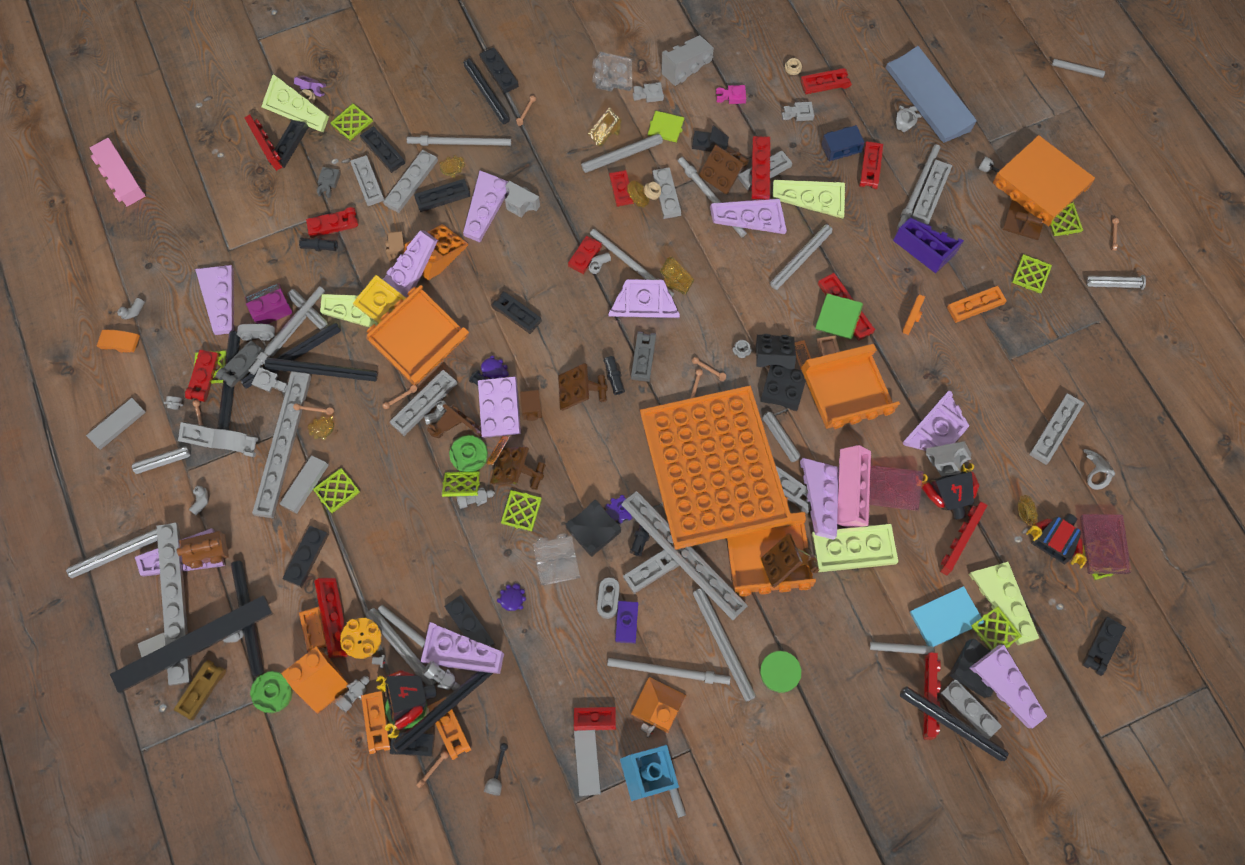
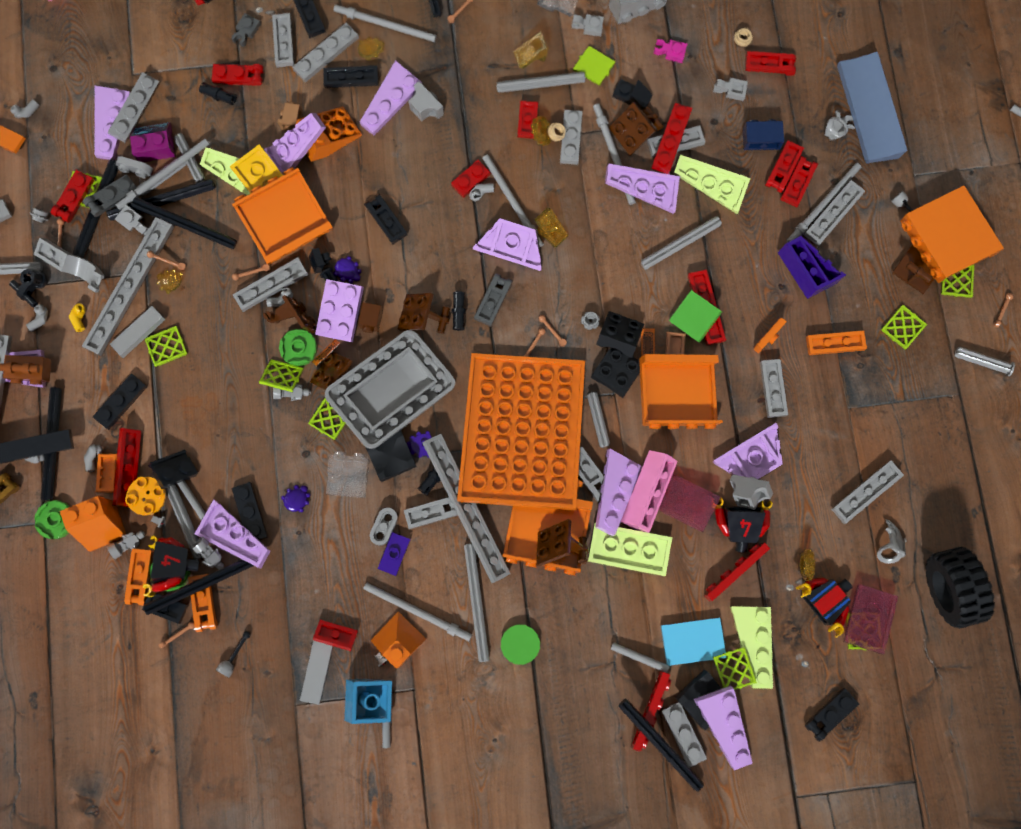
camera: 15 degrees right, 10 degrees up
(181, 471) = (29, 284): none -> black piece
(237, 487) = (76, 316): none -> yellow arm
(239, 278) = (133, 107): none -> light grey plate
(290, 618) = (89, 456): none -> light grey arm
(380, 604) = (173, 469): none -> black plate
(463, 367) = (318, 260): none -> black tile
(573, 464) = (389, 389): none -> light grey wedge
(889, 174) = (799, 182): none -> red plate
(935, 360) = (773, 388): none -> light grey plate
(1177, 485) = (960, 587): none -> black tyre

